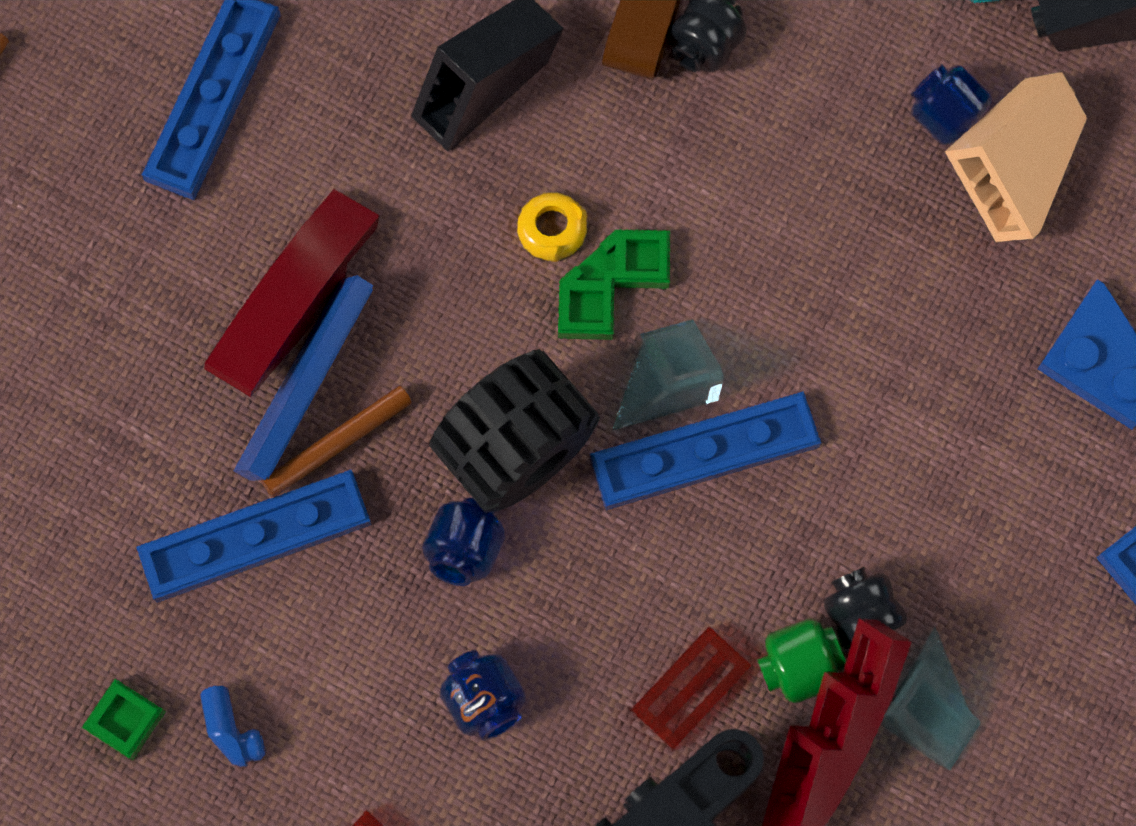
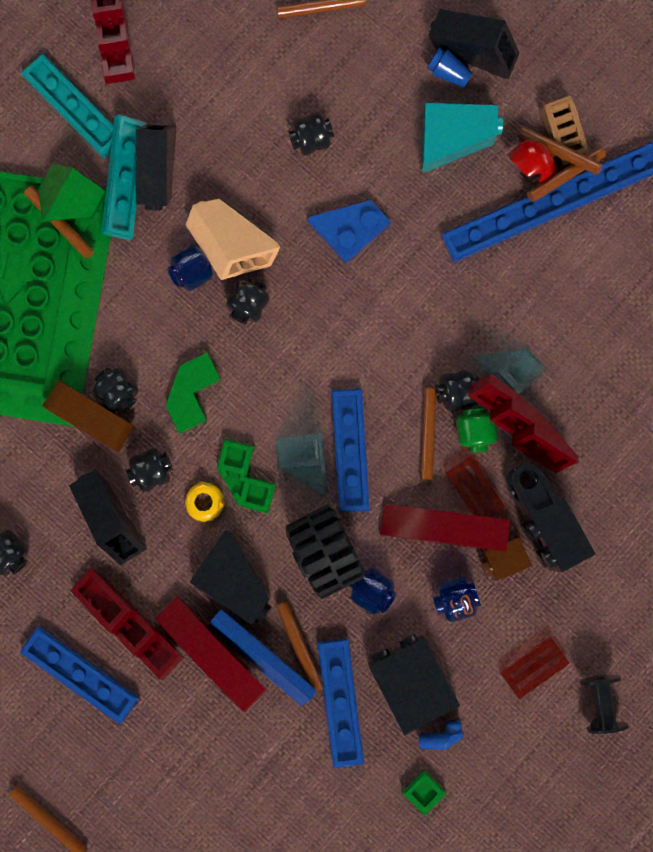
camera: 75 degrees left, 10 degrees up
(314, 147) = (127, 623): none -> dark red slope
(315, 649) = (413, 683): none -> black brick
(429, 299) = (233, 580): none -> black slope
(577, 766) = (507, 563): none -> reddish brown brick
(585, 118) = (149, 469): none -> black piece
(608, 644) = (445, 528): none -> dark red slope
(755, 151) = (190, 379): none -> green tile
(769, 581) = (428, 434): none -> dark orange bar
(921, 210) = (247, 301): none -> black piece

